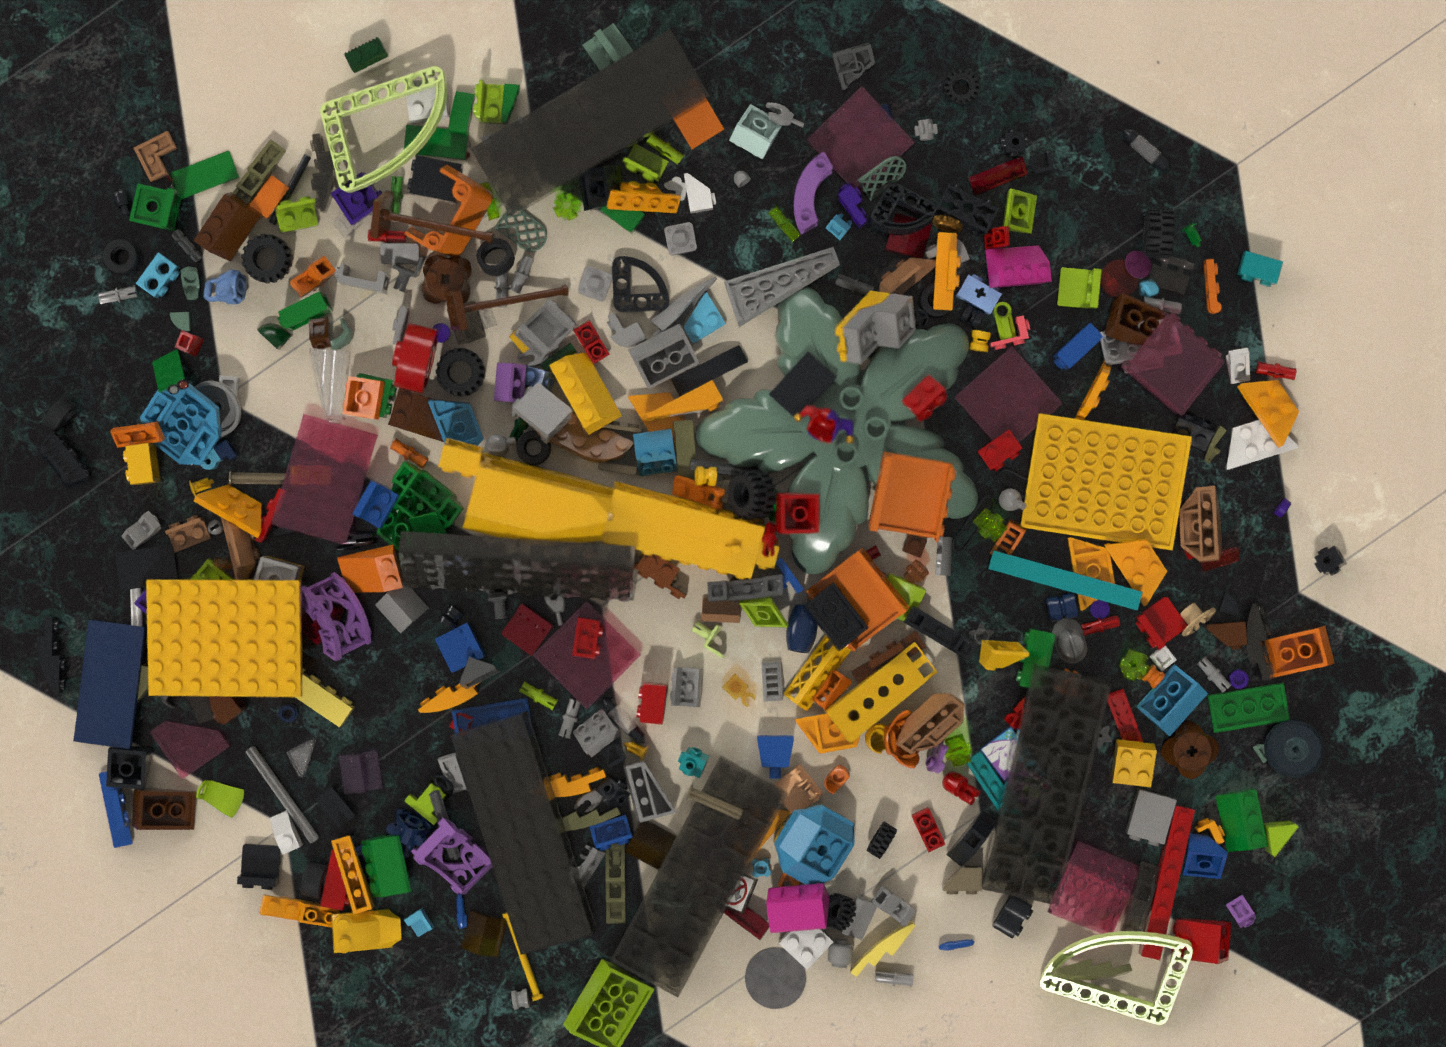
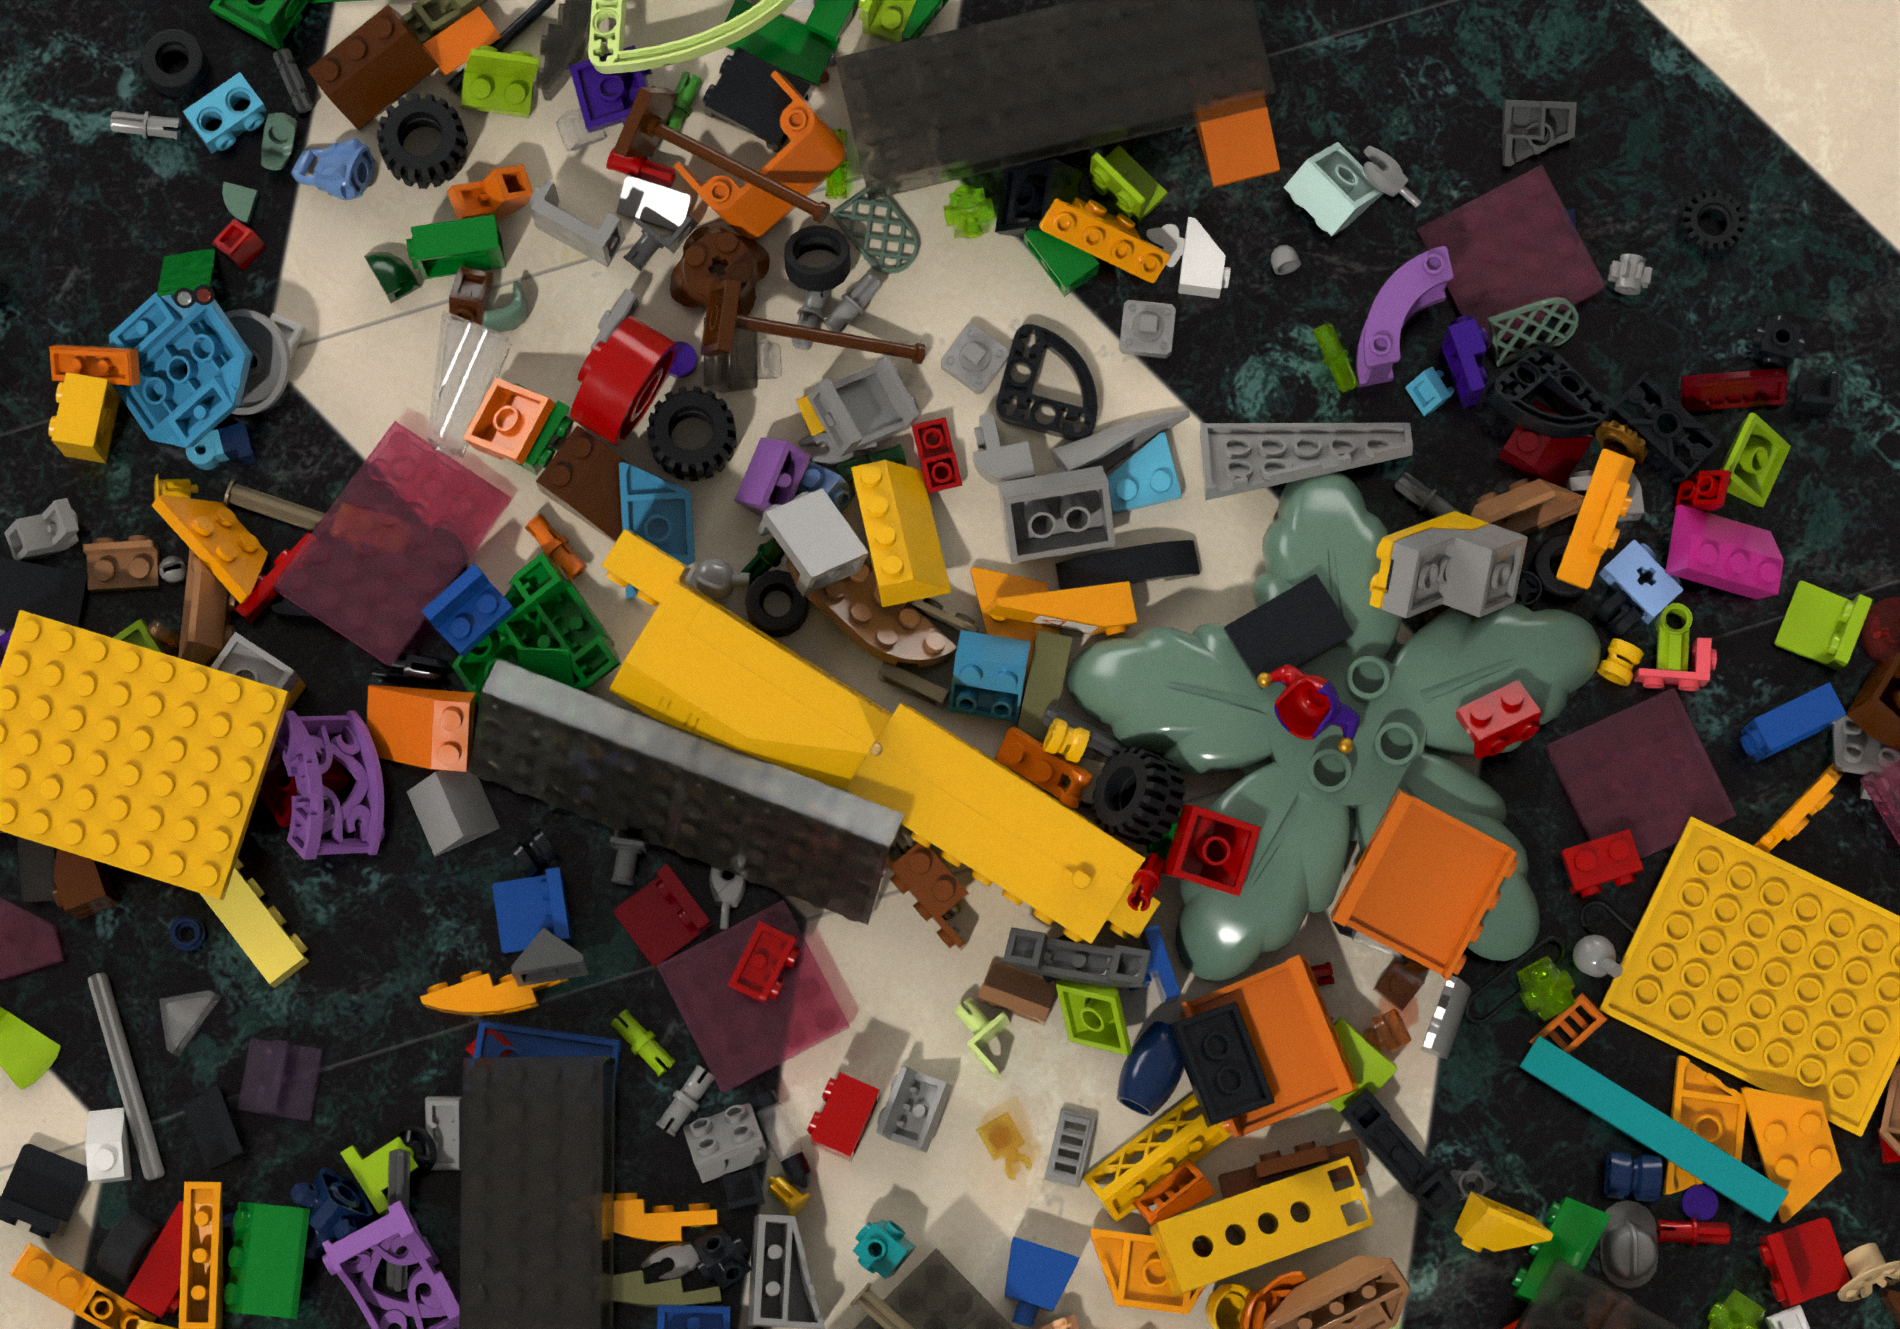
camera: 20 degrees right, 10 degrees down
(665, 149) = (1167, 170): lime pin -> none

